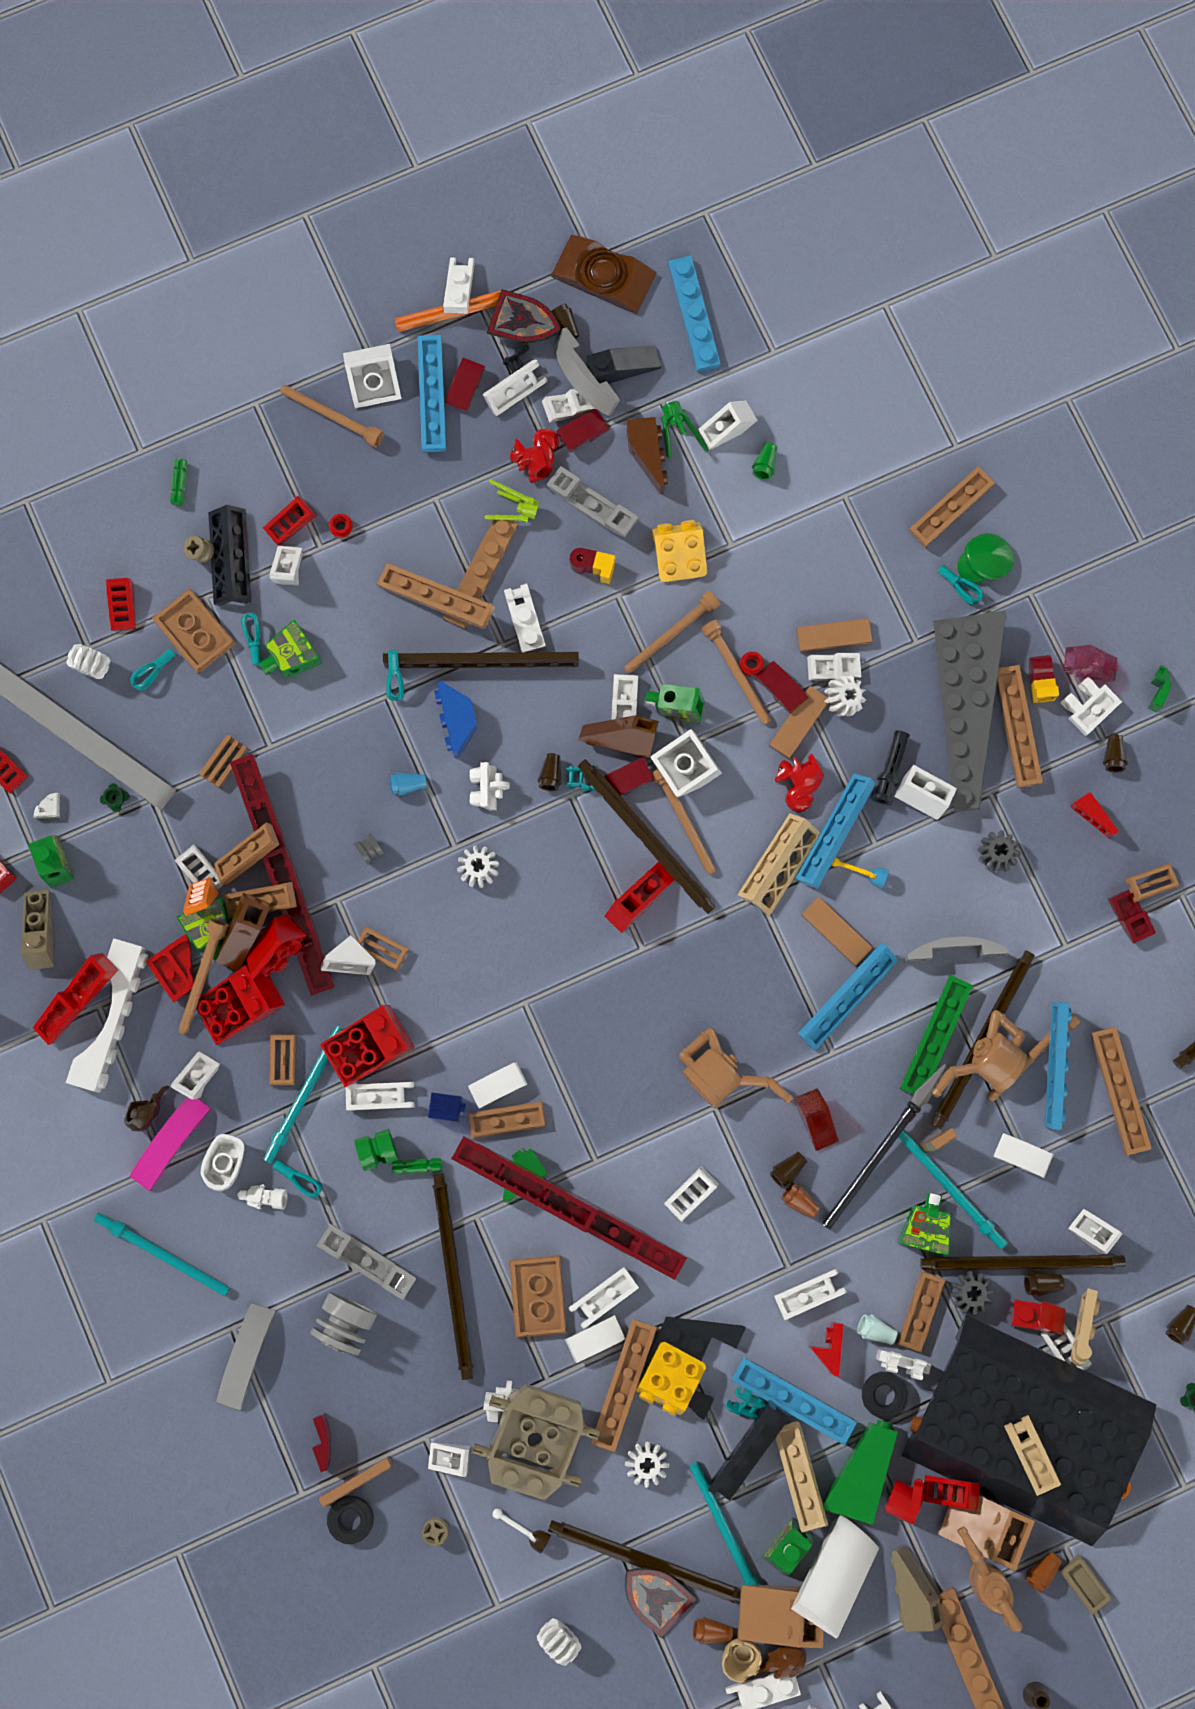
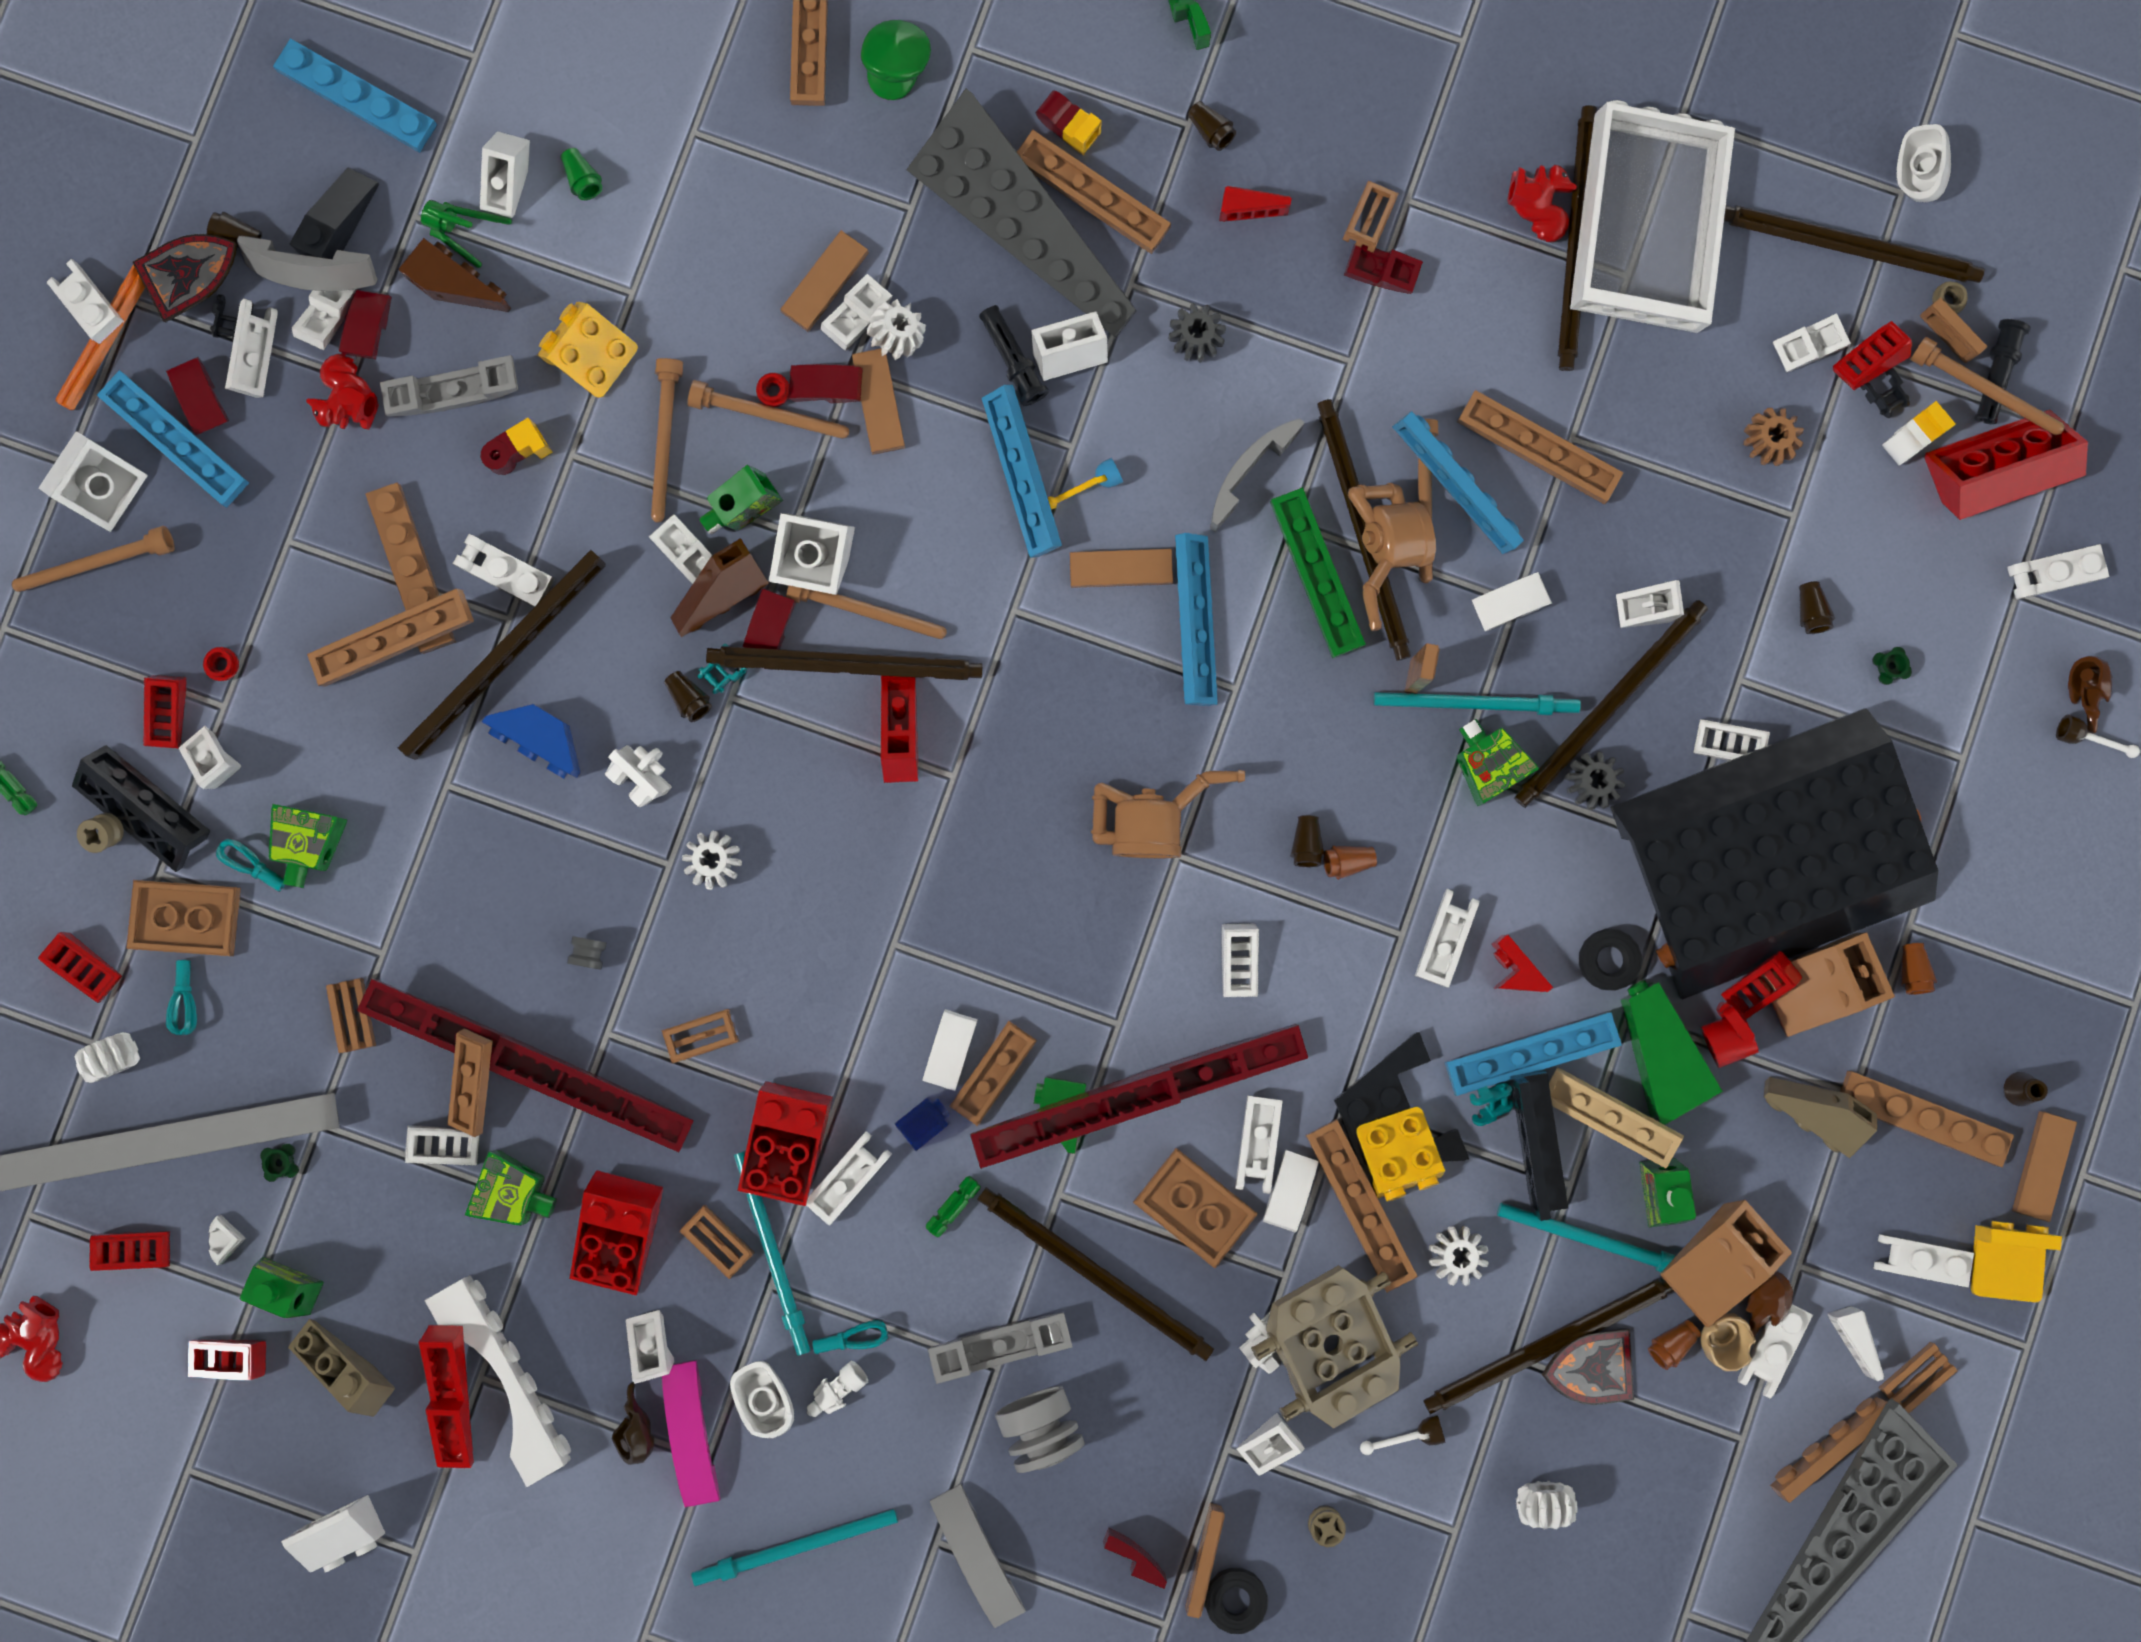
camera: 50 degrees left, 5 degrees up
(174, 968) = (517, 1265): red wing -> none
(200, 896) = (467, 1171): orange slope -> none
(217, 930) = (520, 1188): medium nougat piece -> none
(242, 931) = (545, 1161): reddish brown slope -> none
(274, 947) = (594, 1144): red slope -> none
(277, 897) = (531, 1113): medium nougat tile -> none
(349, 958) = (679, 1078): white slope -> none
(376, 1150) = (898, 1233): green wheel -> none
(394, 669) = (424, 754): teal piece -> none
(406, 782) = (555, 851): dark azure cone -> none
(526, 505) = (388, 457): lime plant -> none
(604, 273) = (221, 143): reddish brown slope -> none
(777, 859) = (994, 557): tan fence -> none
(806, 781) = (941, 450): red animal -> none
(817, 1119) = (1285, 767): clear red slope -> none
(836, 1576) = (1738, 1175): white slope -> none
(876, 1330) = (1540, 908): light aqua cone -> none
(915, 1367) = (1611, 905): white plate -> none
(920, 1098) = (1362, 645): black piece -> none
(921, 1311) = (1565, 847): medium nougat tile -> none
(955, 579) = (886, 107): teal piece -> none
(990, 1584) = (1885, 1033): medium nougat piece -> none
(1033, 1456) = (1808, 874): tan plate -> none
(1038, 1317) = (1677, 739): red slope -> none
(1042, 1283) = (1649, 704): dark brown cone -> none
(1085, 1329) = (1731, 705): tan plate -> none
(1085, 1584) = (1964, 941): dark tan tile -> none
(1090, 662) = (1099, 59): clear pink slope -> none
(1094, 710) = (1149, 101): white plate -> none

